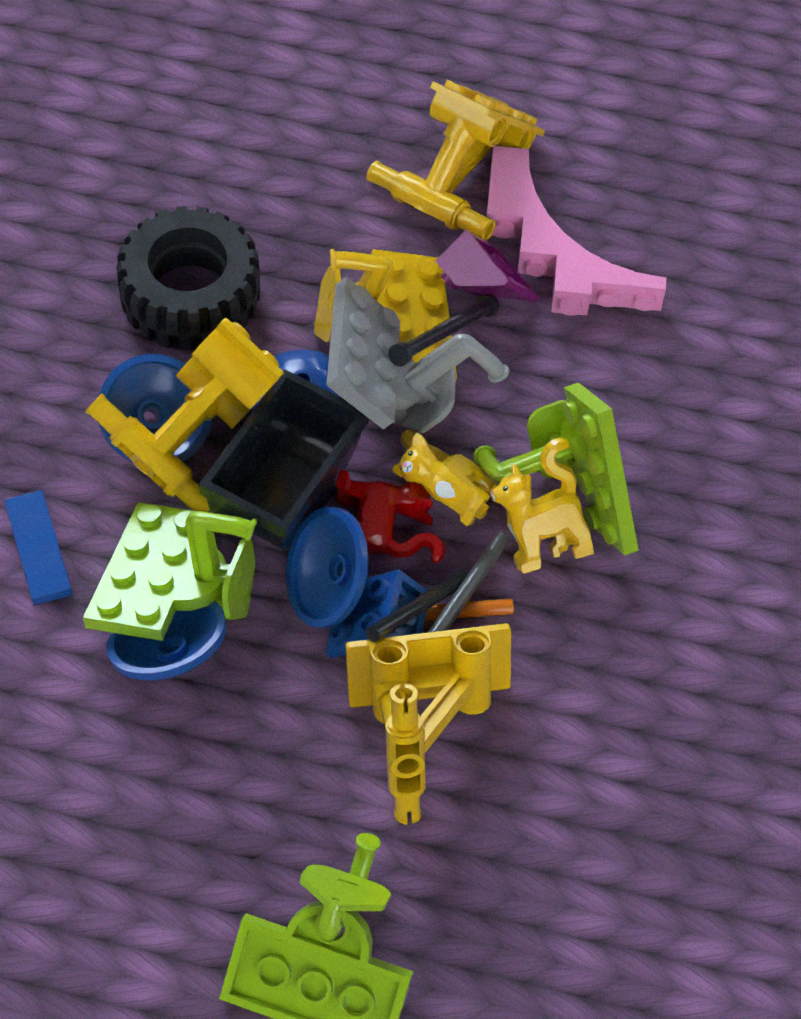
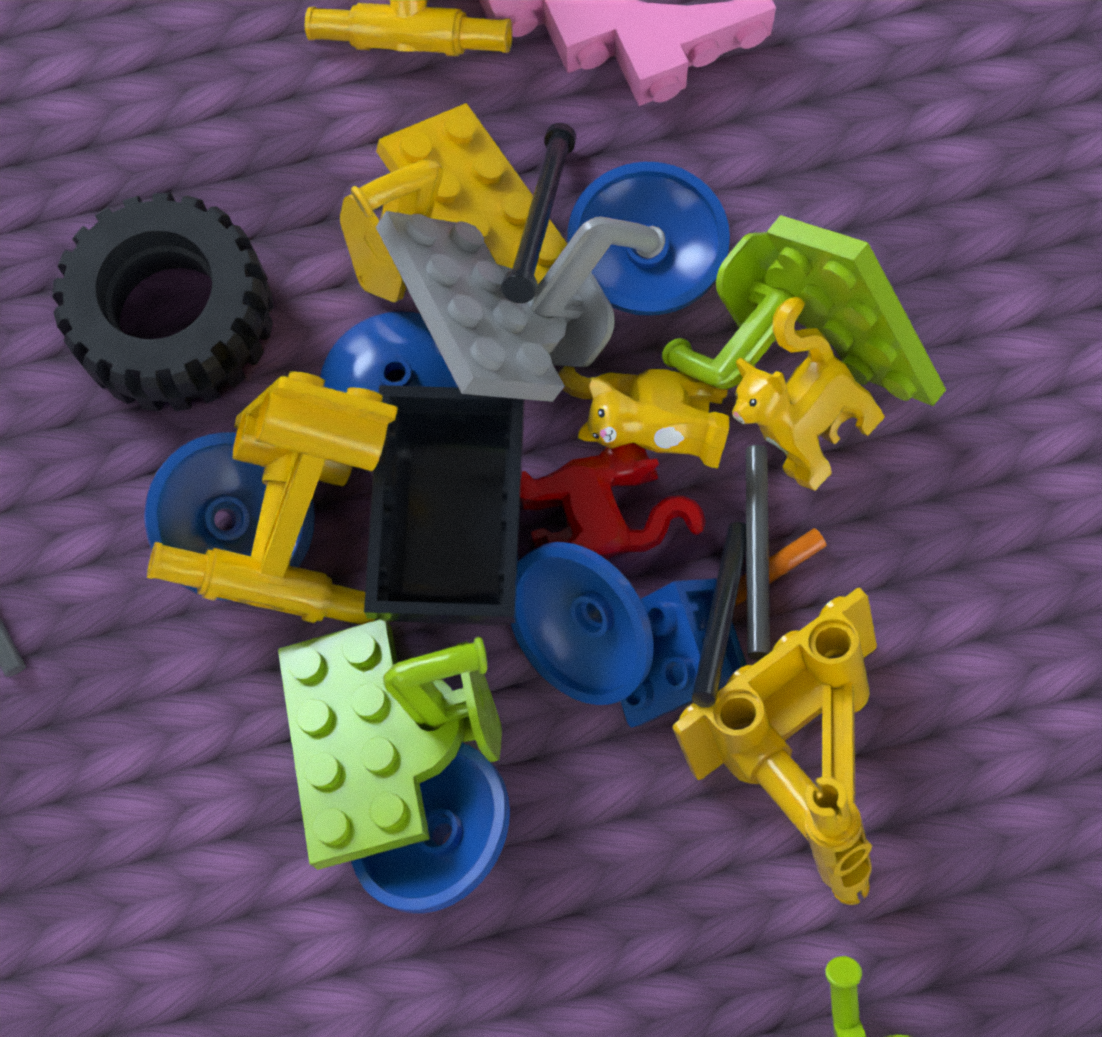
camera: 20 degrees left, 15 degrees up
(38, 547) = (184, 779): blue tile -> none
(482, 269) = (529, 93): magenta slope -> none
(531, 382) = (693, 231): none -> blue dish

